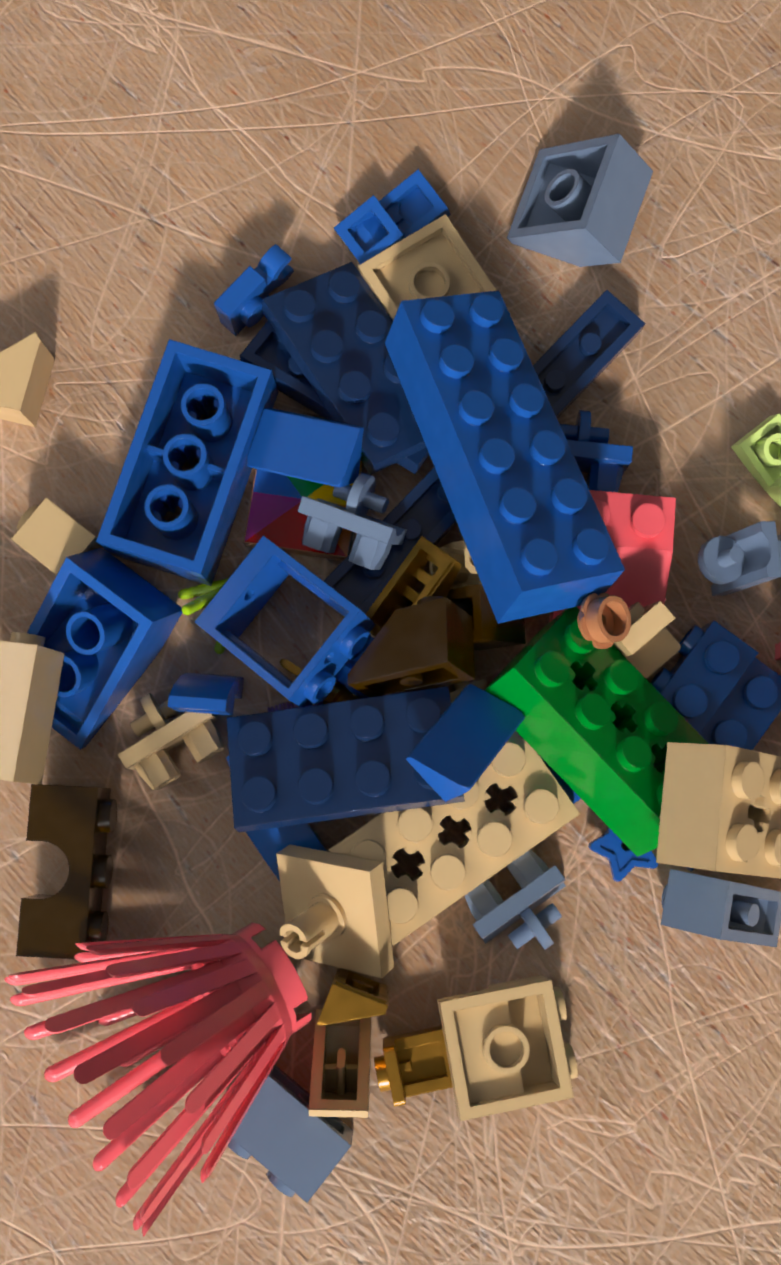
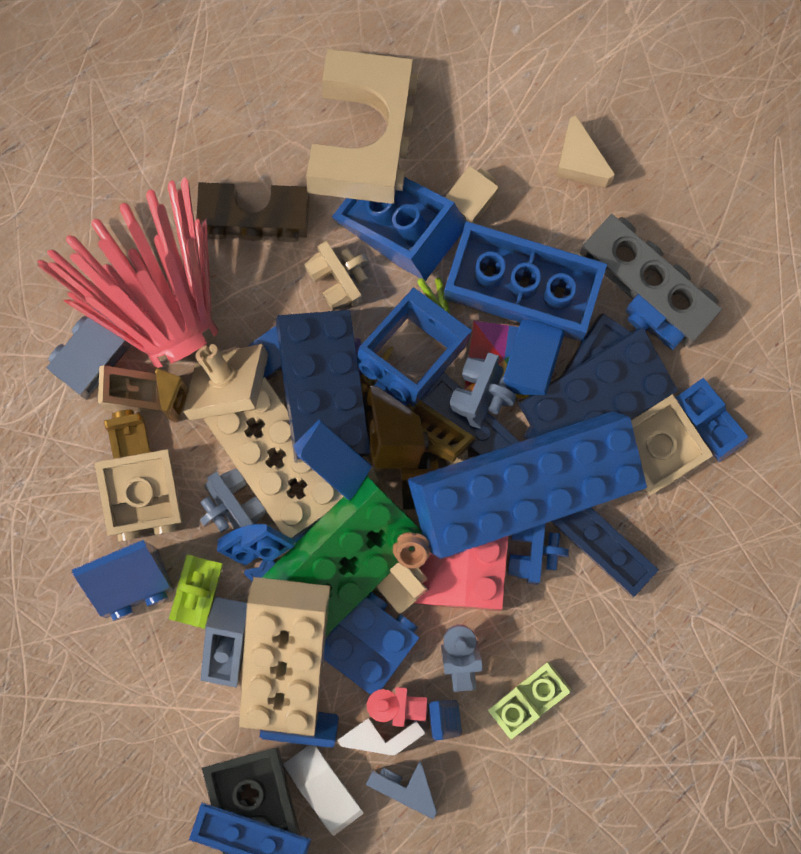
camera: 90 degrees right, 0 degrees up
(188, 320) = (648, 257): none -> dark grey brick
(205, 693) = (367, 296): blue slope -> none
(582, 201) = (725, 553): sand blue slope -> none
(582, 869) = (253, 542): none -> blue slope
(645, 1071) = (125, 580): none -> blue slope
(653, 955) = (196, 591): none -> lime hips

